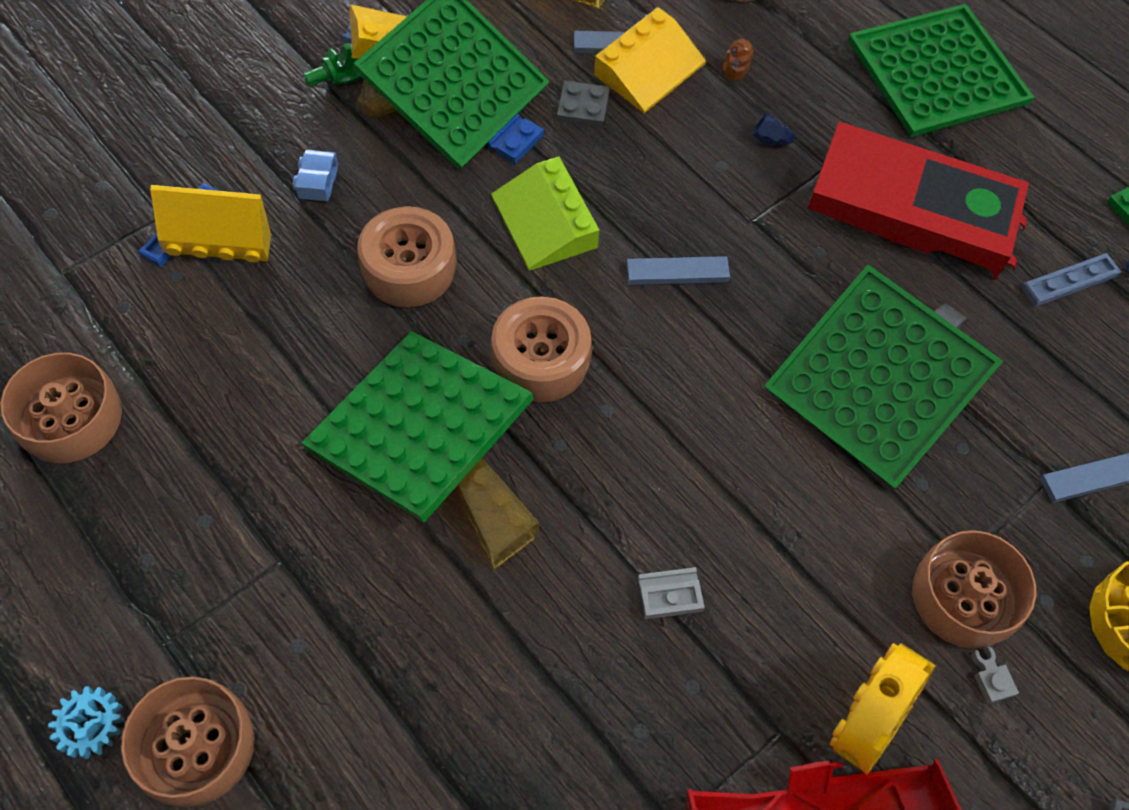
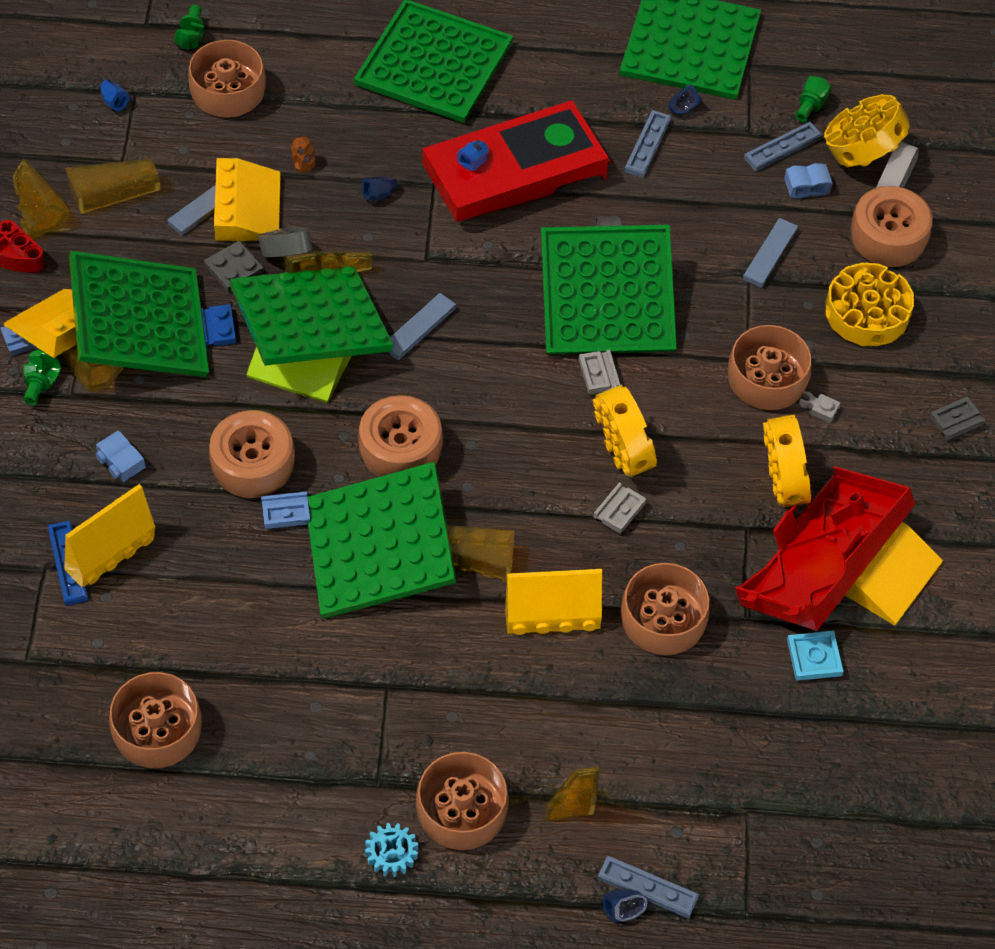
camera: 45 degrees left, 5 degrees down
(383, 327) = (285, 510): none -> medium blue plate
(491, 629) = (553, 601): none -> yellow slope
(572, 775) = (661, 589): none -> nougat wheel
(583, 184) = (310, 315): none -> green plate
(638, 111) = (285, 242): none -> dark grey beam
(648, 153) = (320, 260): none -> clear yellow wedge
(742, 522) = (624, 431): none -> yellow brick
(794, 445) = (598, 371): none -> light grey plate
(877, 158) = (473, 155): none -> blue rock

